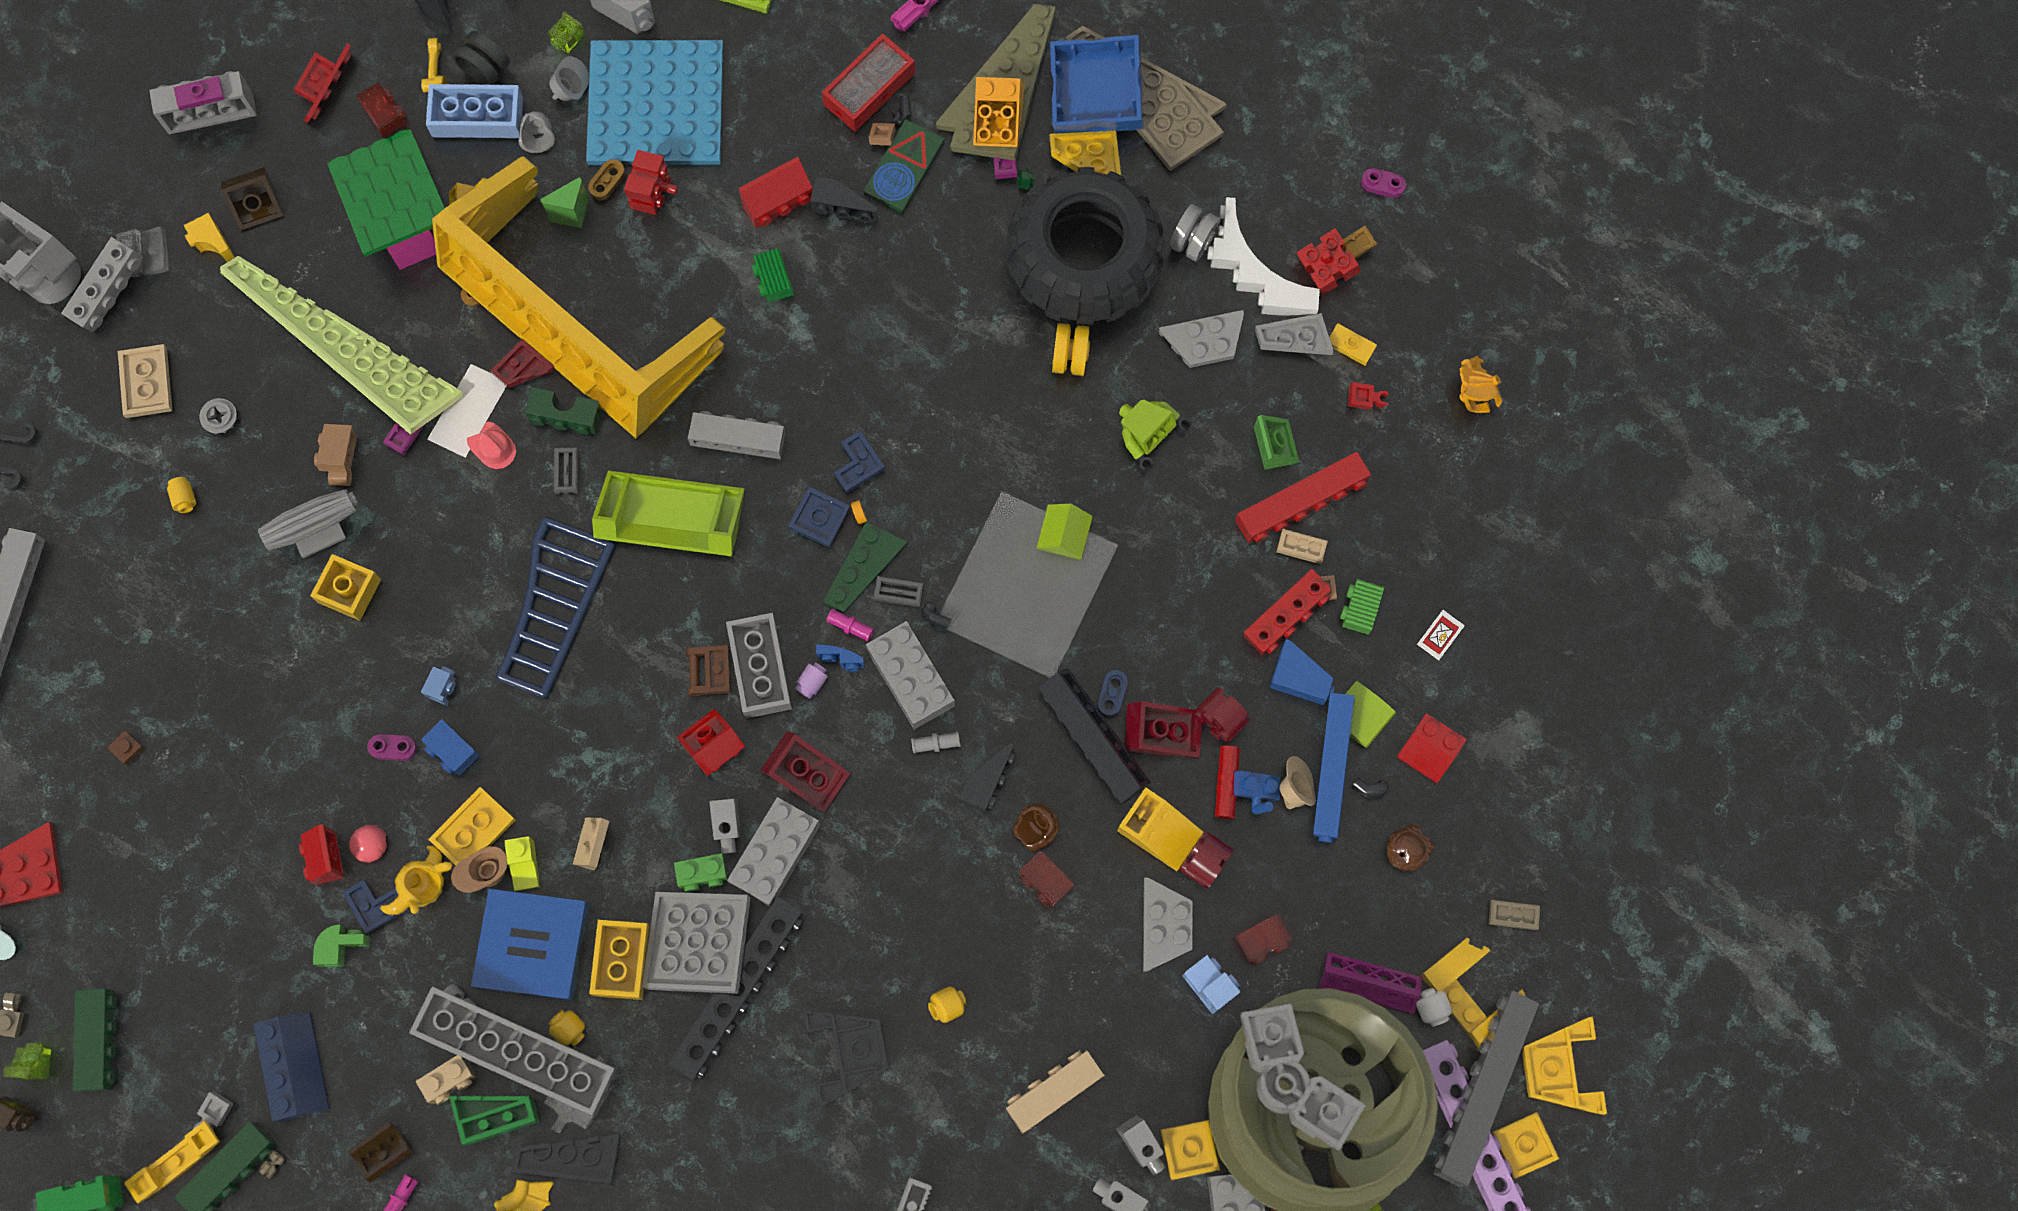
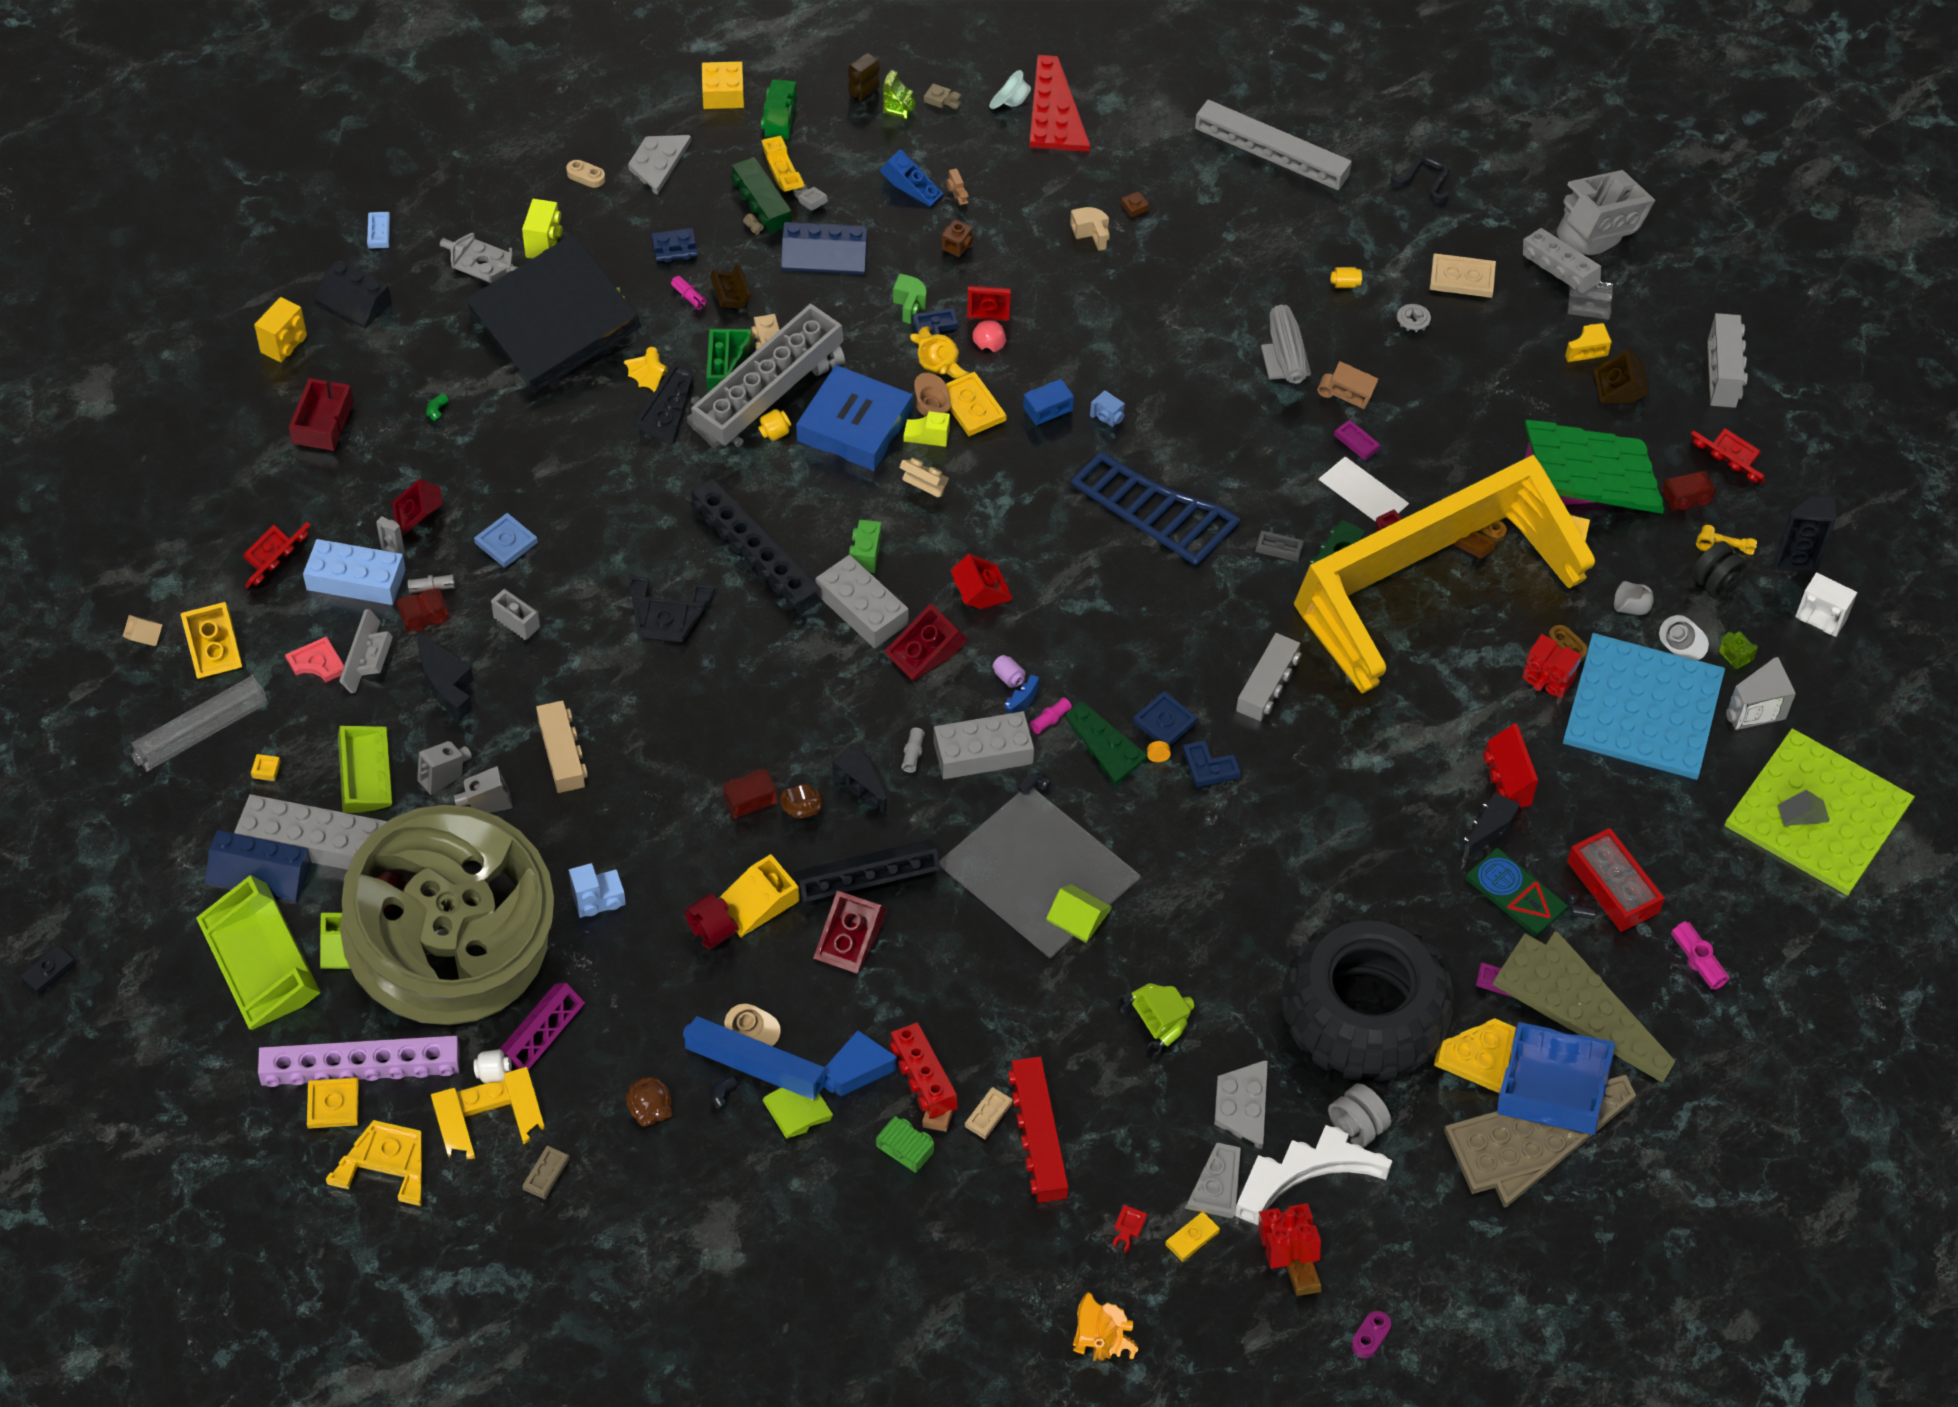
camera: 110 degrees right, 20 degrees down
(94, 1040) = (892, 136): dark green brick -> none
(151, 951) = (955, 185): none -> medium nougat plate
(154, 1007) = (909, 178): none -> blue slope
(170, 781) = (1090, 222): none -> tan brick
(199, 93) = (1726, 345): magenta plate -> none
(236, 921) = (957, 238): none -> reddish brown brick
(345, 587) = (1220, 363): yellow brick -> none
(385, 378) = (1414, 430): yellowish green wing -> none
(391, 747) = (1068, 366): magenta plate -> none
(474, 111) = (1667, 554): light blue brick -> none
(492, 446) = (1321, 500): coral piece -> none
(567, 204) = (1545, 601): bright green slope -> none
(619, 959) = (814, 470): yellow brick -> none
(668, 513) = (1210, 607): lime slope -> none
(696, 942) = (806, 523): light grey plate -> none
(716, 670) = (1048, 605): reddish brown plate -> none
(722, 812) = (904, 572): light grey torso -> none
(758, 665) = (1036, 632): light grey brick -> none
(772, 274) = (1425, 747): green brick -> none
(882, 134) = (1556, 880): medium nougat plate -> none
(897, 600) = (1063, 777): dark grey tile -> none
(947, 1004) = (672, 689): yellow head -> none
(998, 111) = (1548, 974): light orange slope -> none
(1025, 179) = (1470, 992): dark green plate -> none
(1071, 349) = (1263, 964): yellow wheel -> none
(1112, 694) = (905, 902): dark blue plate -> none
(1165, 925) = (669, 880): light grey wing -> none
(1222, 715) = (842, 977): dark red brick -> none
(1225, 797) = (778, 969): red axle -> none
(1258, 788) = (763, 988): blue plate -> none
(1263, 938) = (619, 949): clear red brick -> none
(1275, 441) = (1107, 1123): bright green slope -> none
(1312, 1103) = (502, 858): light grey plate -> none
(1431, 748) = (740, 1158): red slope -> none
(1440, 635) = (850, 1213): sticker -> none
(1485, 1088) = (398, 1071): dark grey brick -> none

